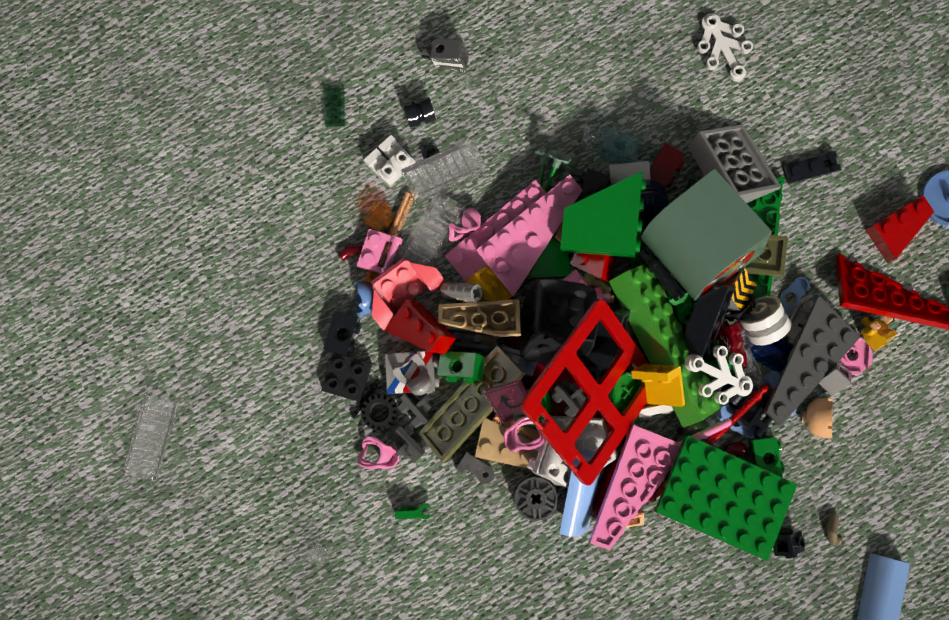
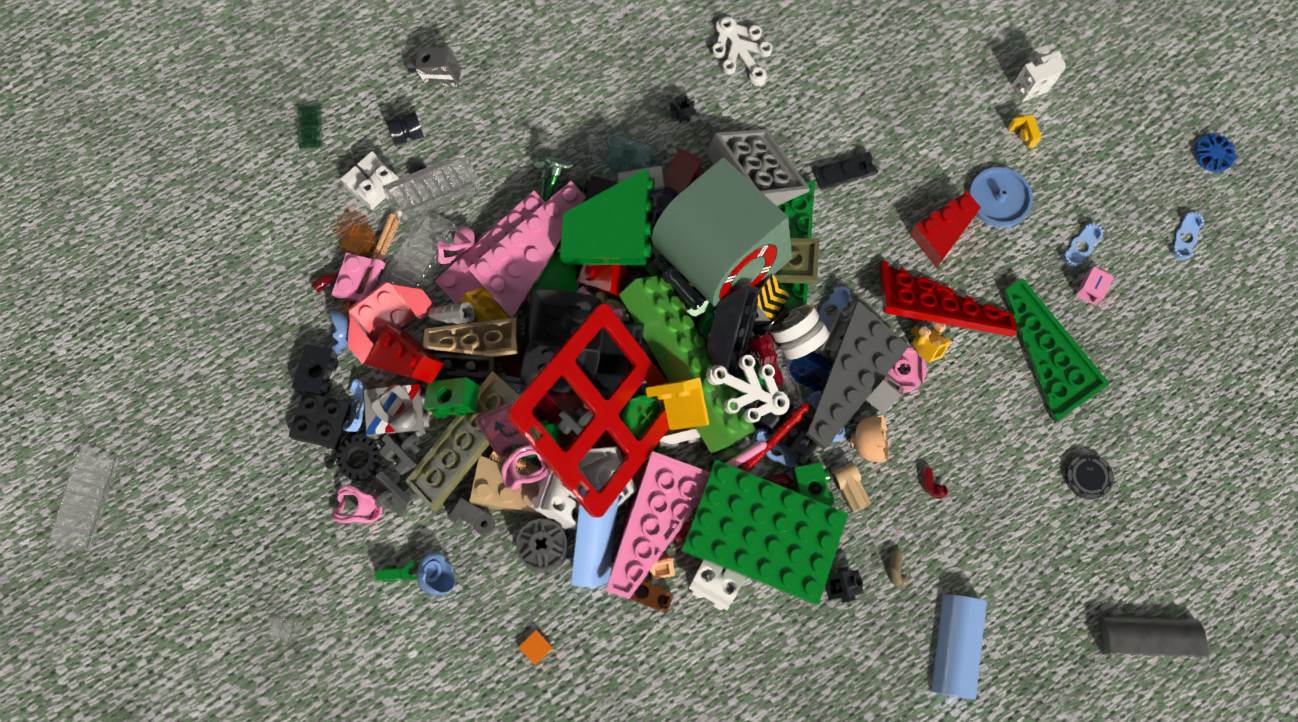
camera: 10 degrees left, 10 degrees down
(379, 356) = (357, 388): none -> light blue piece
(445, 516) = (435, 574): none -> medium blue hair
(525, 579) = (535, 647): none -> orange tile
(628, 545) = (652, 597): none -> reddish brown leg
(673, 102) = (683, 115): none -> black gear
(681, 538) = (716, 586): none -> white hips
(797, 453) = (849, 483): none -> tan piece
(868, 460) = (930, 486): none -> dark red arm

